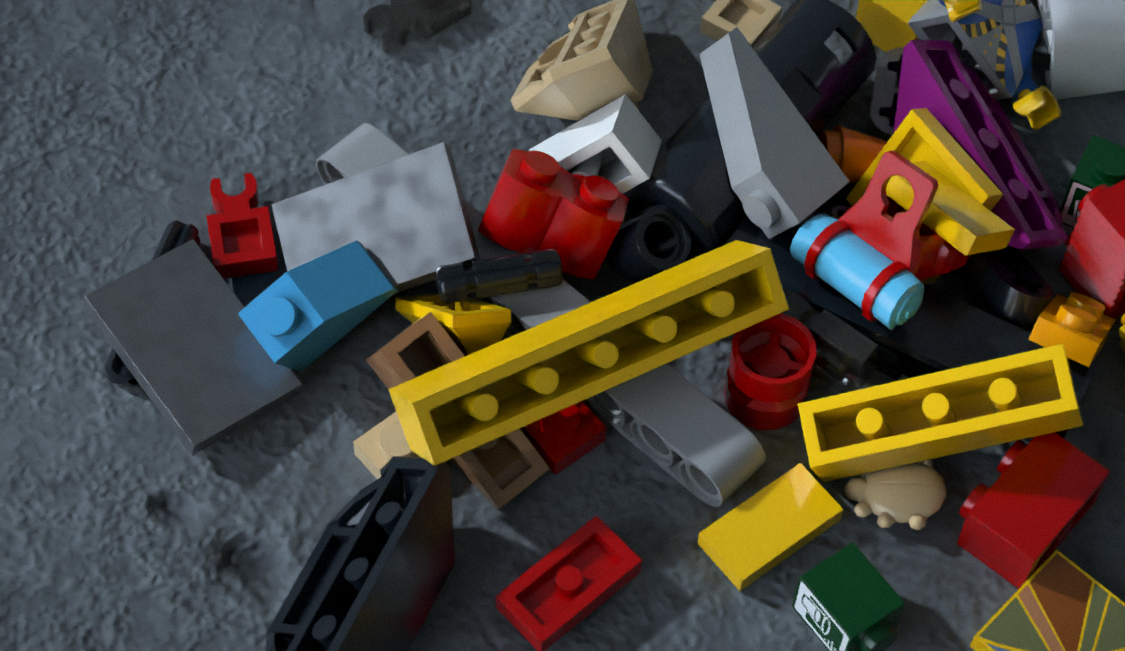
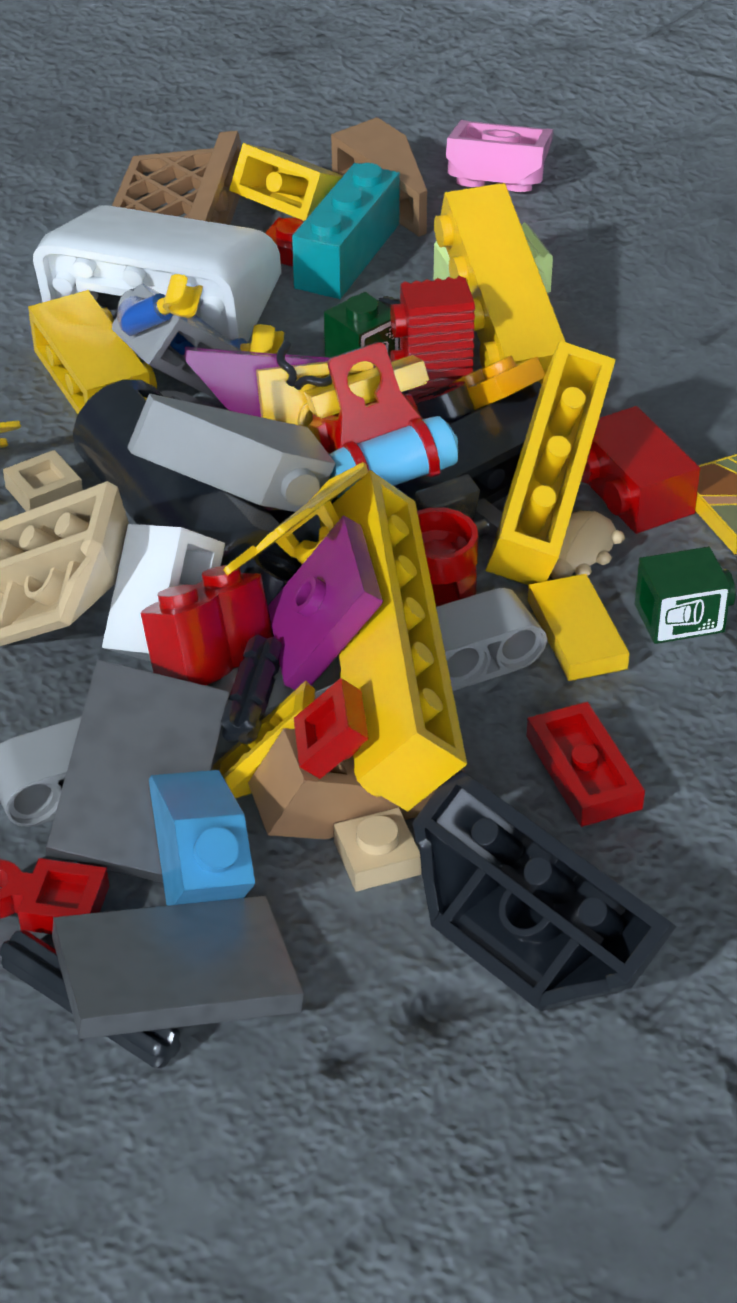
camera: 65 degrees left, 15 degrees down
(429, 345) = (330, 728): none -> red plate
(599, 284) = (324, 604): none -> magenta plate
(675, 247) = (318, 504): none -> yellow shield
(923, 138) = (280, 357): none -> black piece

